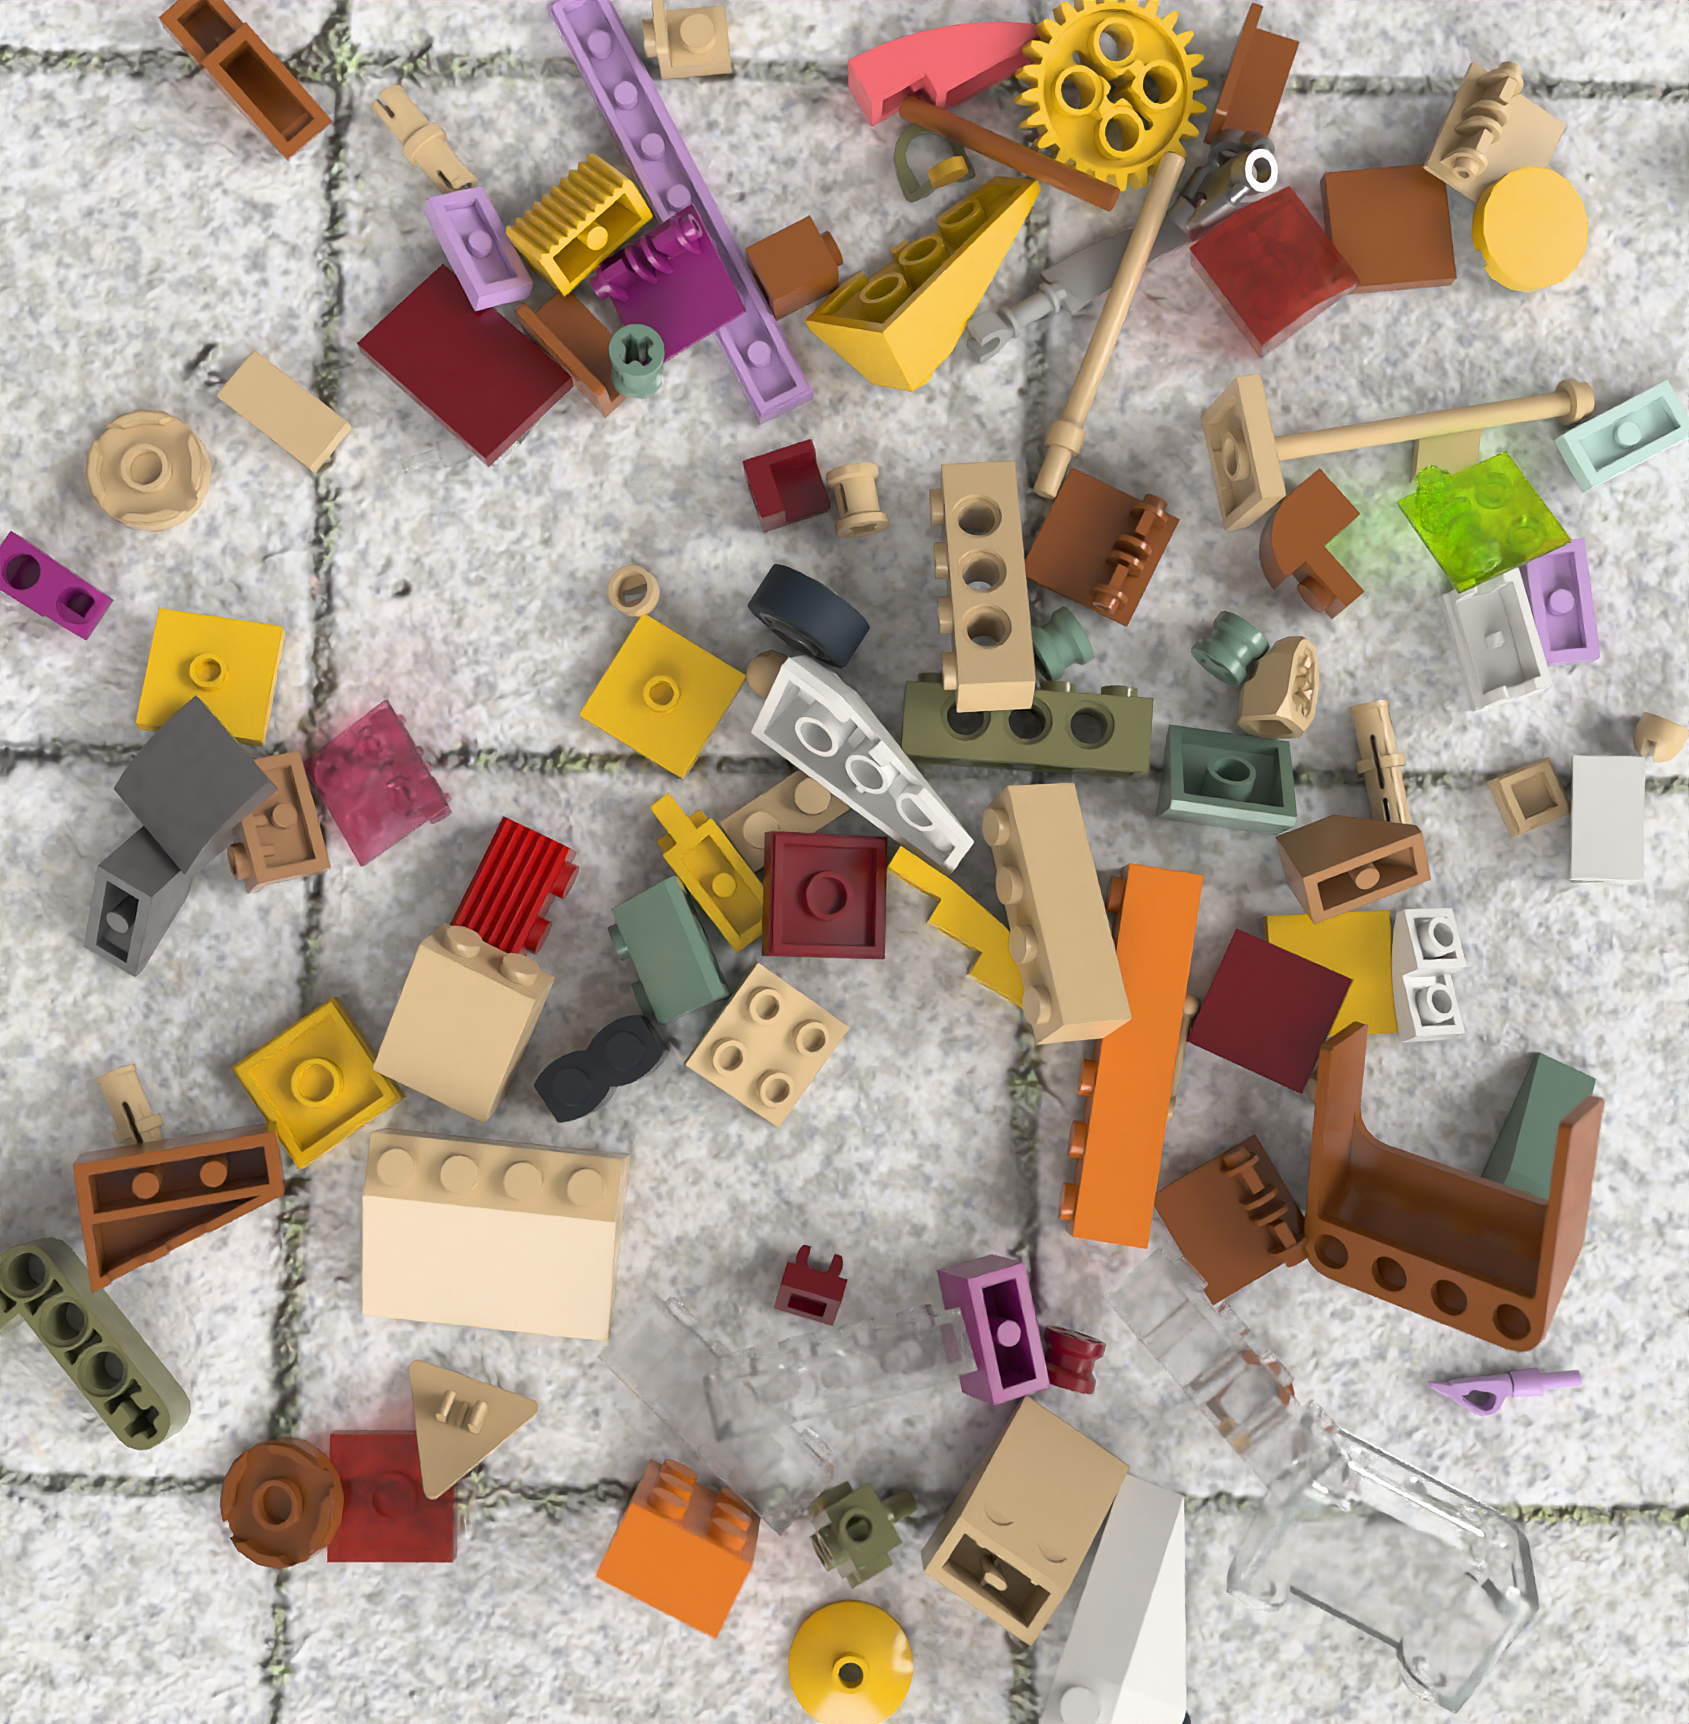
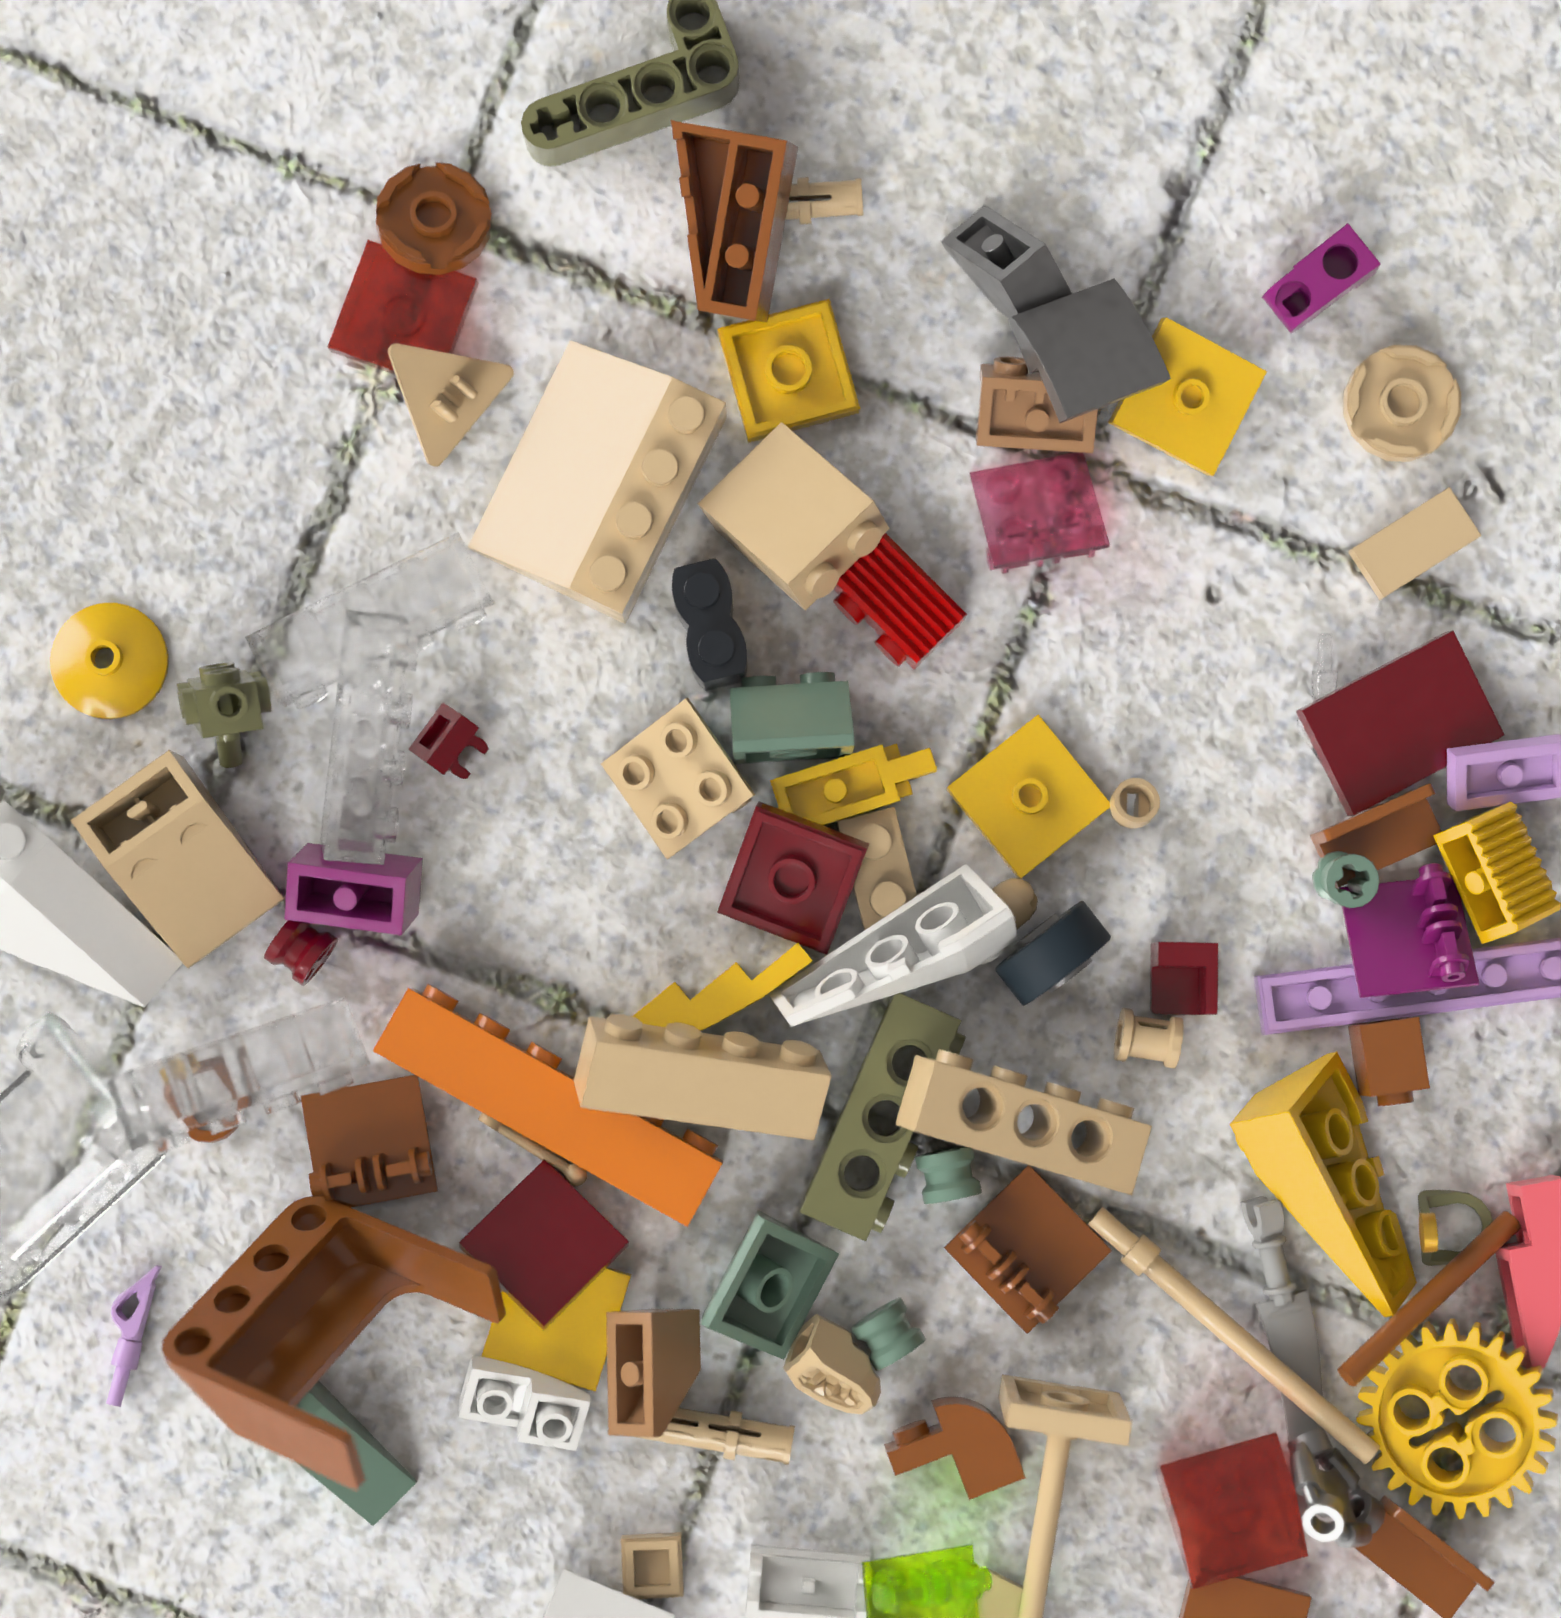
camera: 105 degrees right, 0 degrees up
(682, 1547) = (270, 549): orange brick -> none

